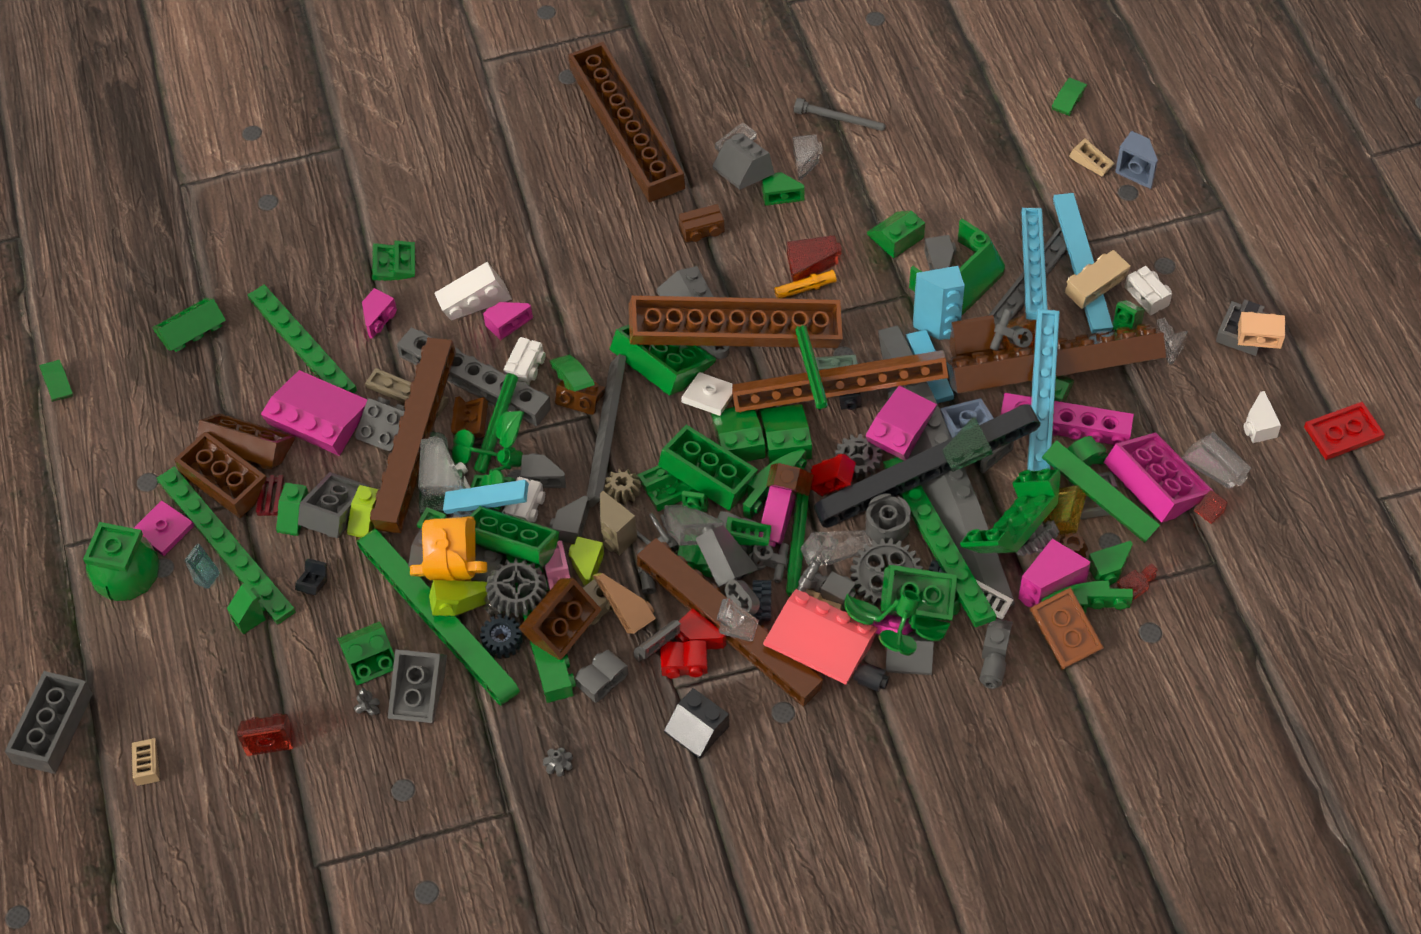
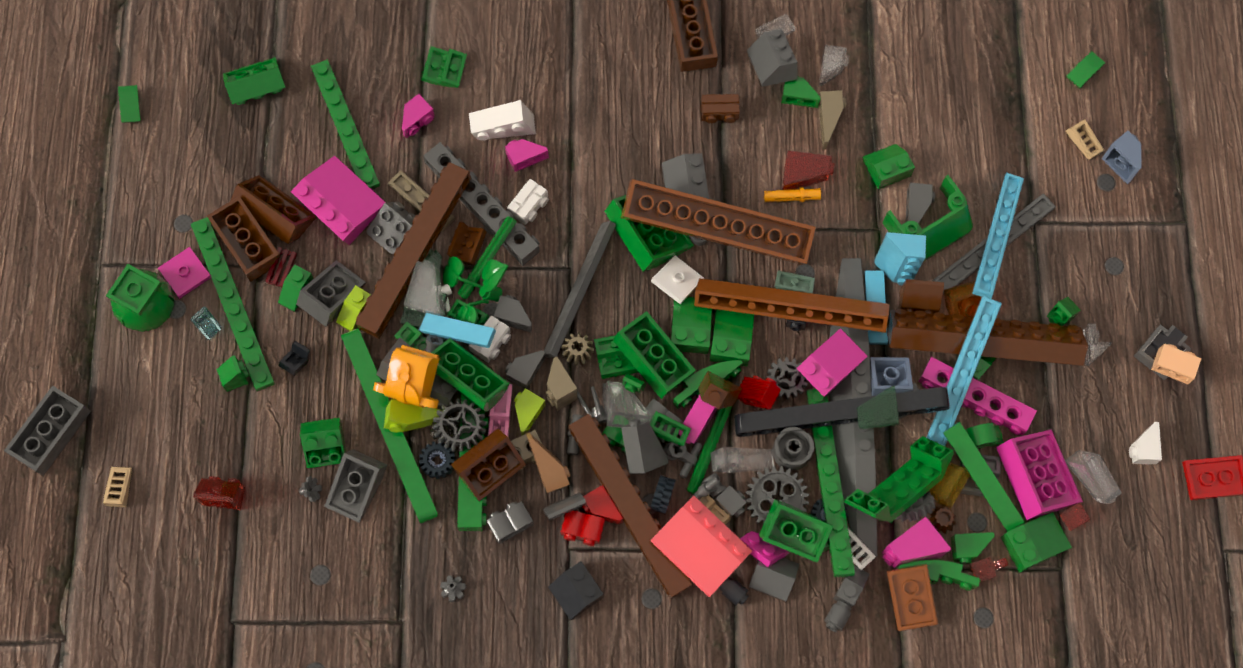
camera: 10 degrees right, 15 degrees up
(571, 372) = (563, 229): green slope -> none
(581, 400) = (566, 247): reddish brown bracket -> none
(736, 621) = (634, 514): clear slope -> none
(744, 593) = (645, 491): dark grey beam -> none
(802, 106) = (845, 13): dark grey piece -> none
(811, 367) = (769, 293): green axle -> none
(818, 197) = (830, 111): none -> dark tan slope
(906, 607) = (762, 580): green plant -> none
(1012, 333) = (958, 305): dark grey piece -> none
(1080, 256) = (1042, 244): medium azure tile -> none
(1097, 278) = (1048, 267): tan brick -> none
(1148, 290) = (1091, 289): white brick -> none
(1177, 542) = (1035, 542): none -> green slope

